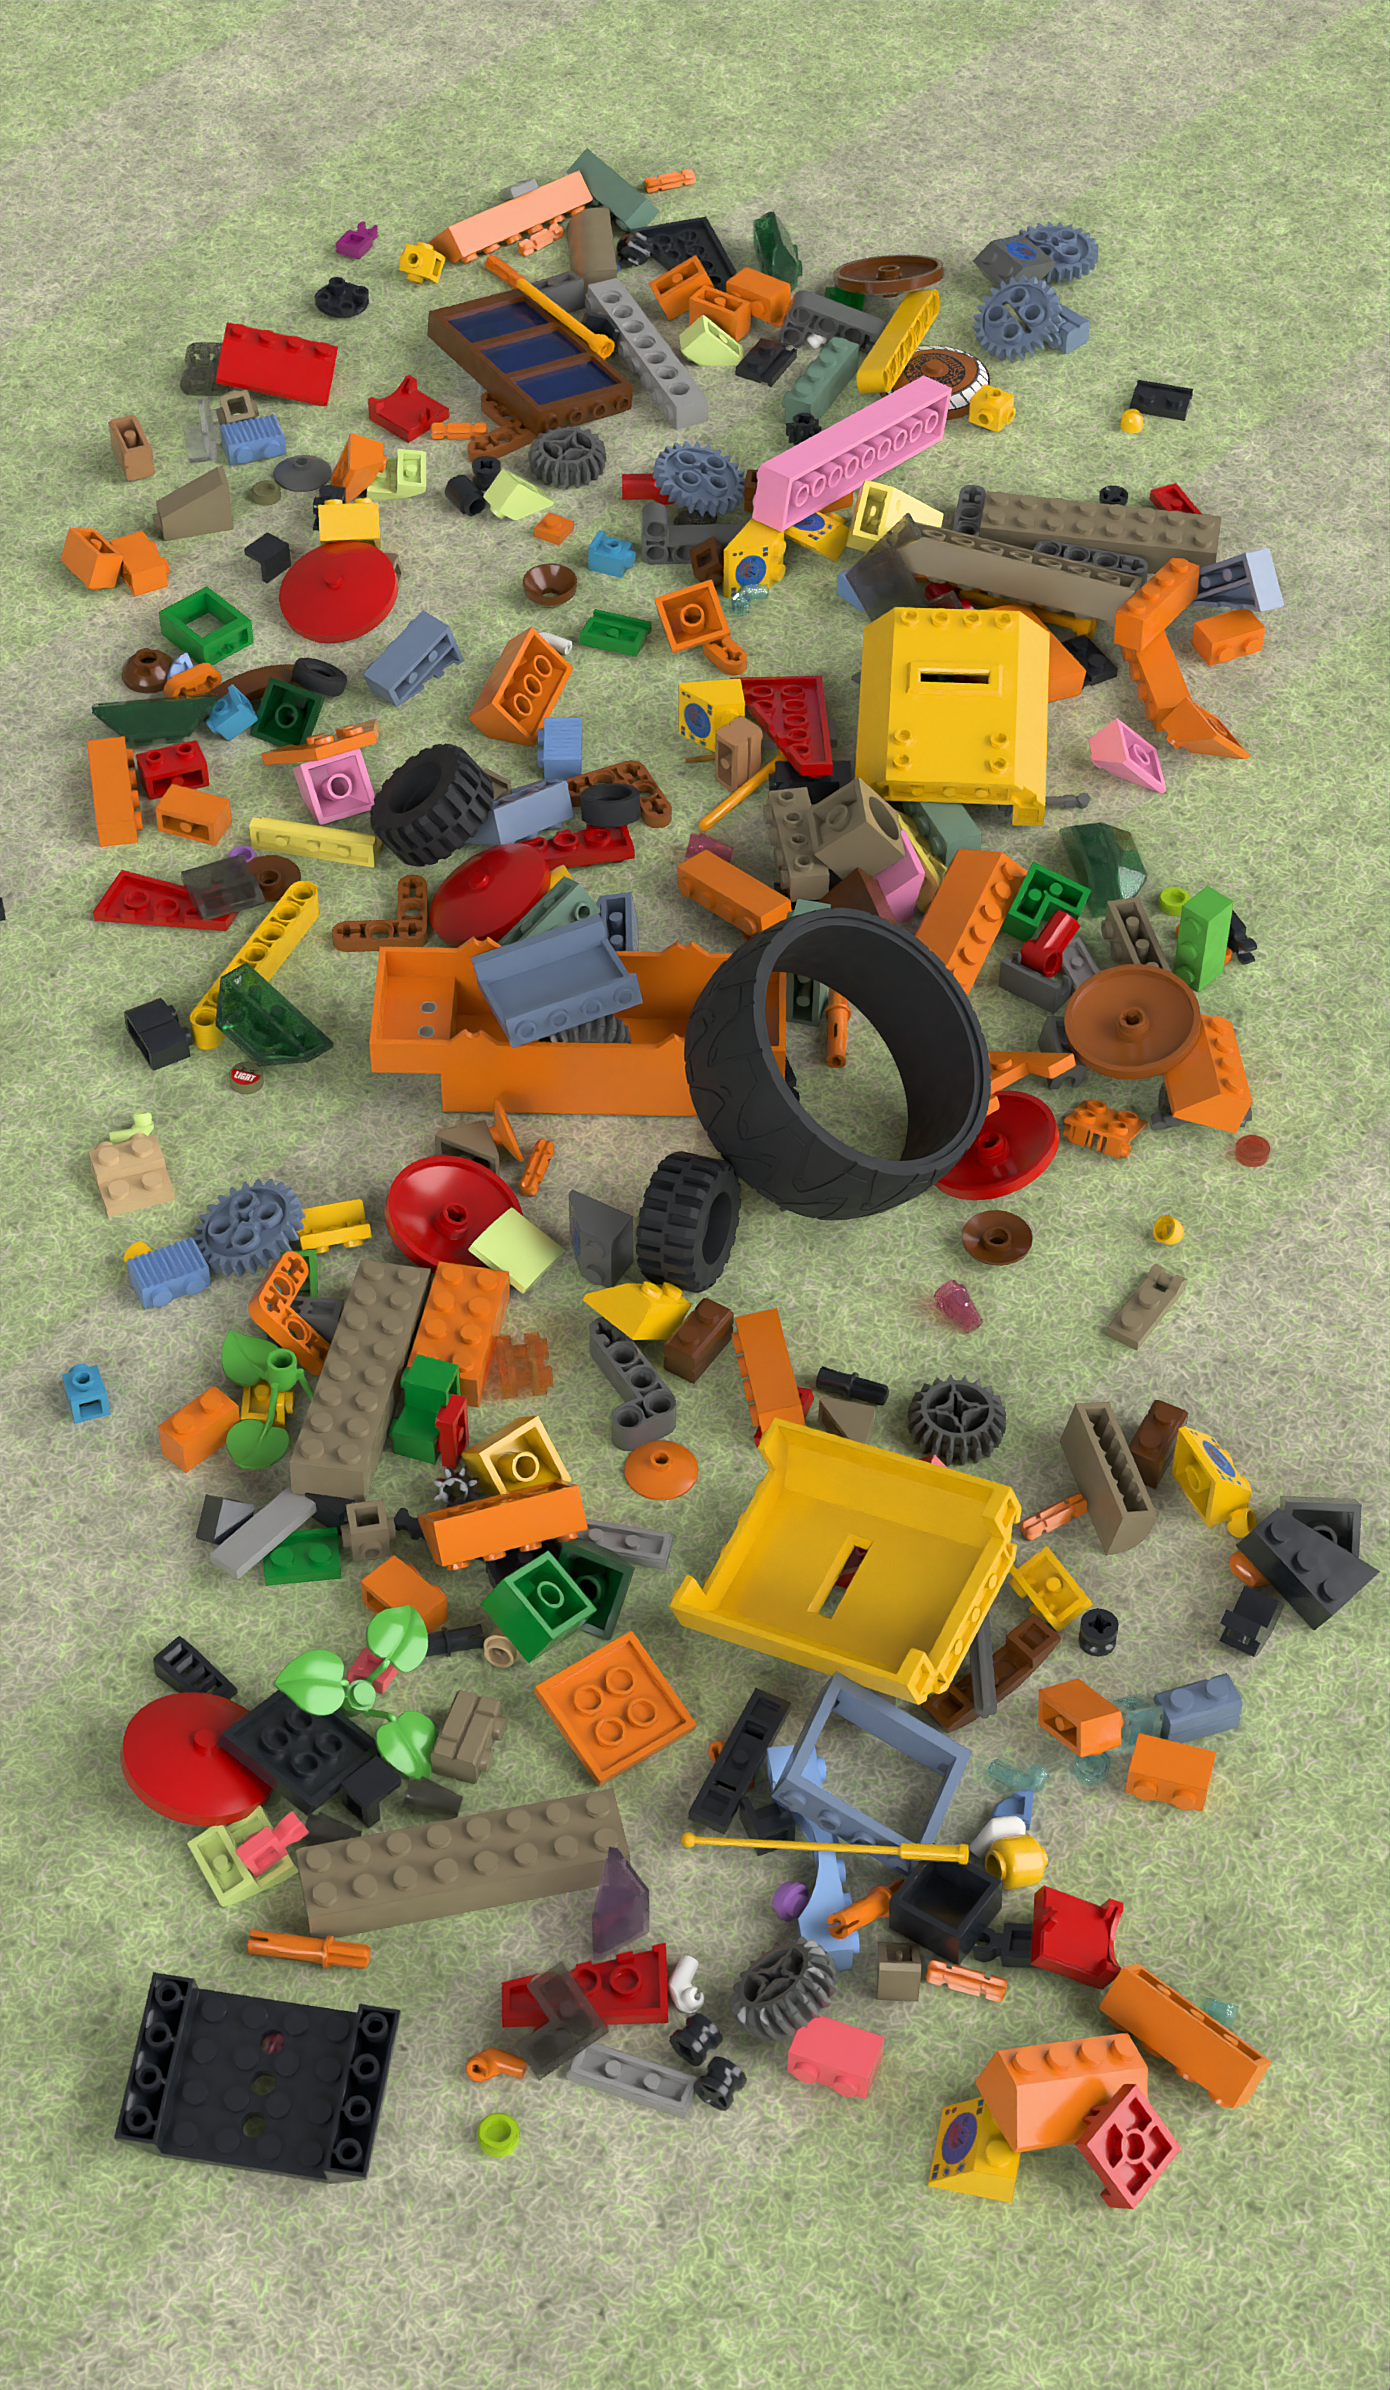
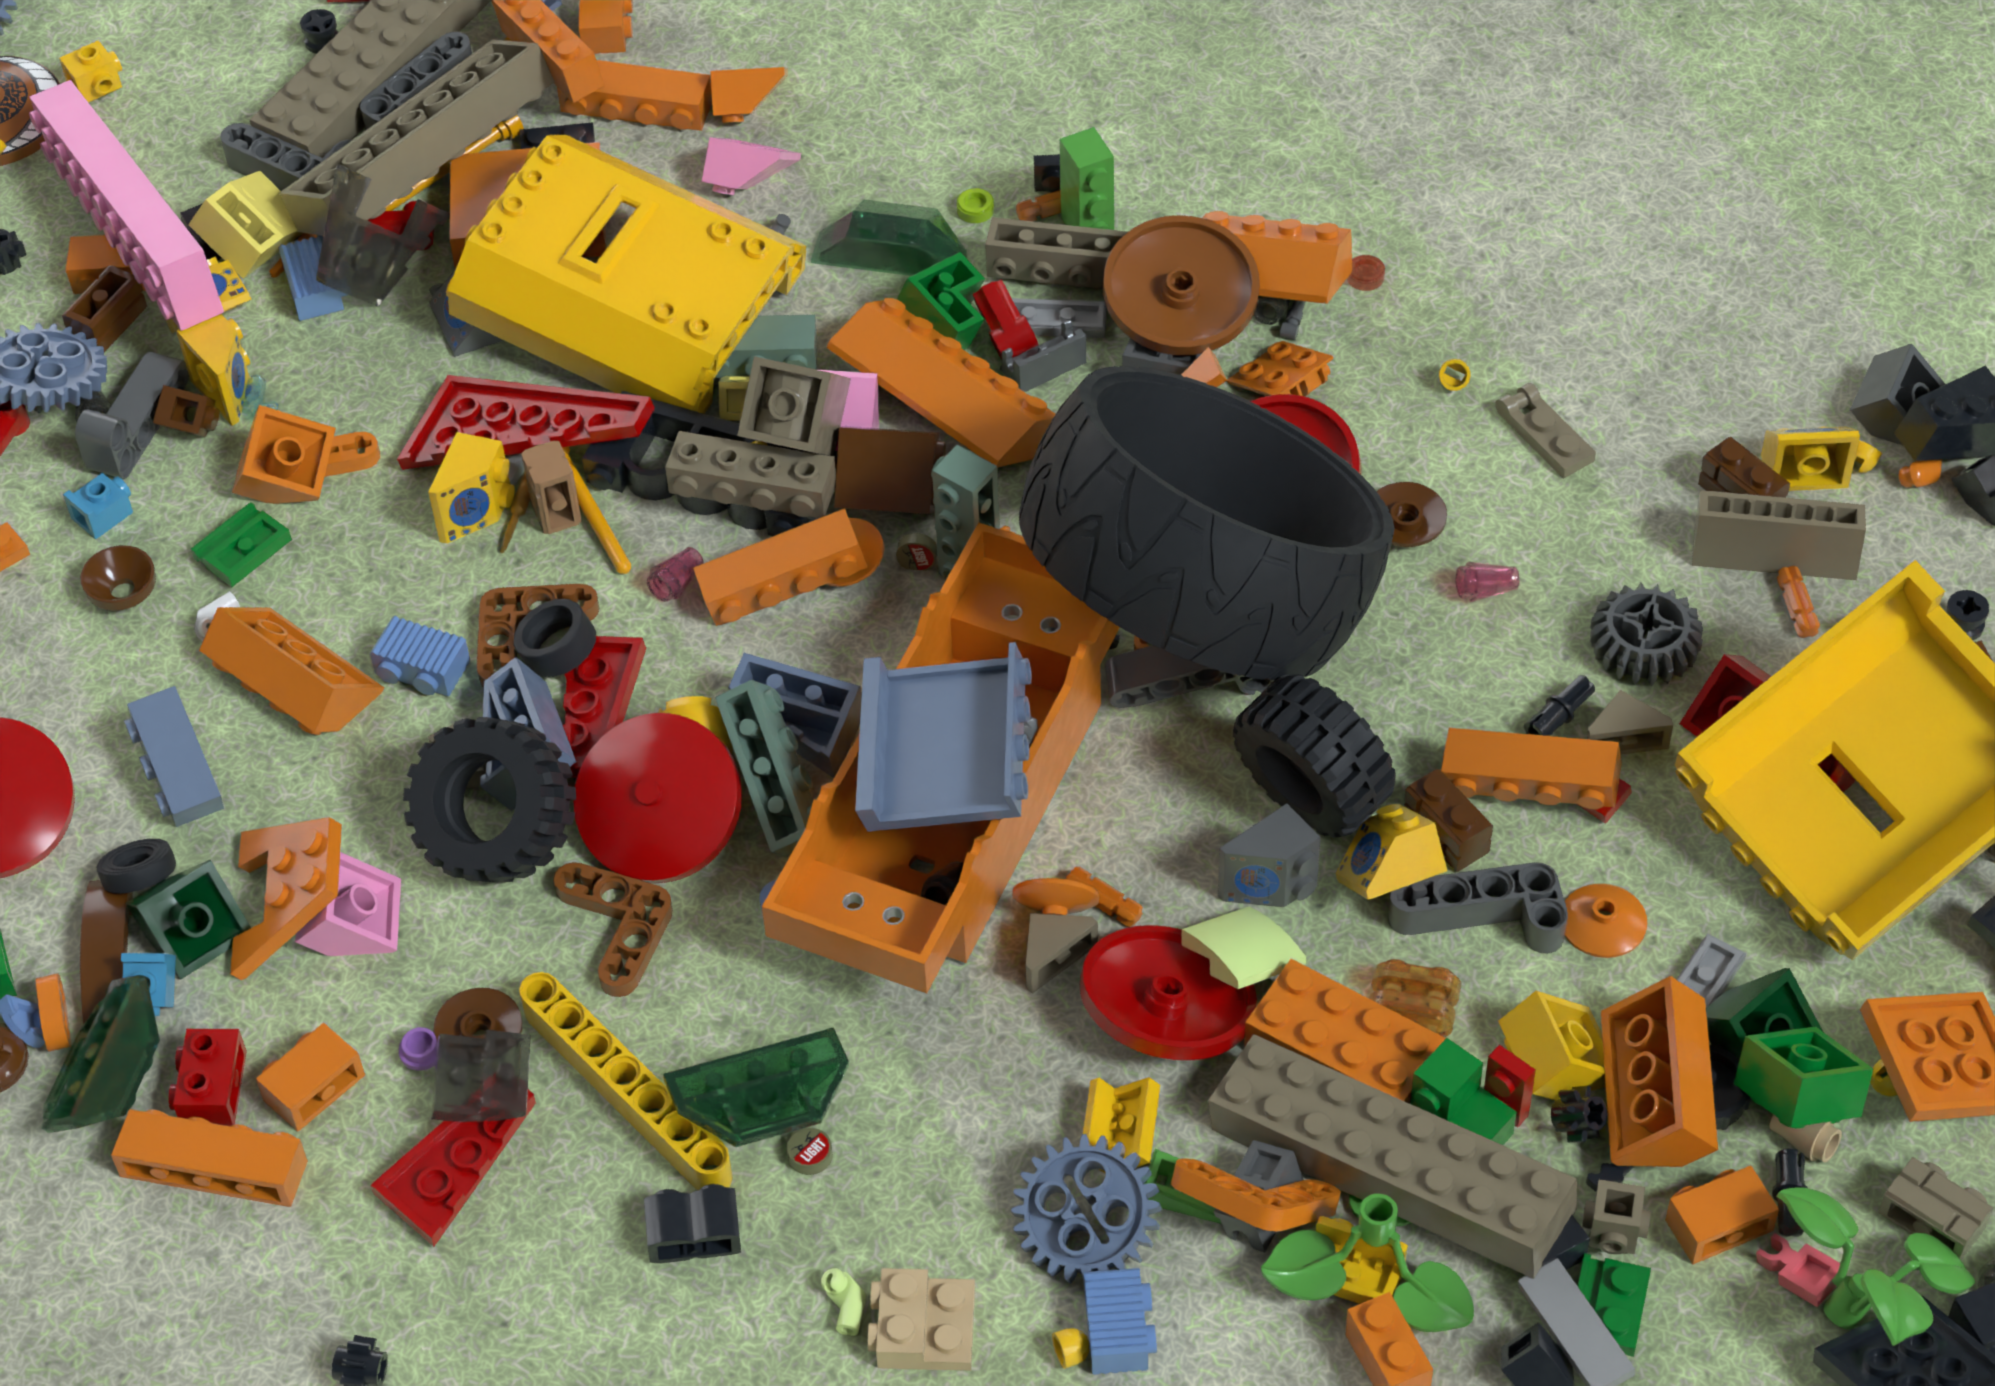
camera: 65 degrees left, 5 degrees up
(315, 841) = (434, 963): light yellow fence -> none

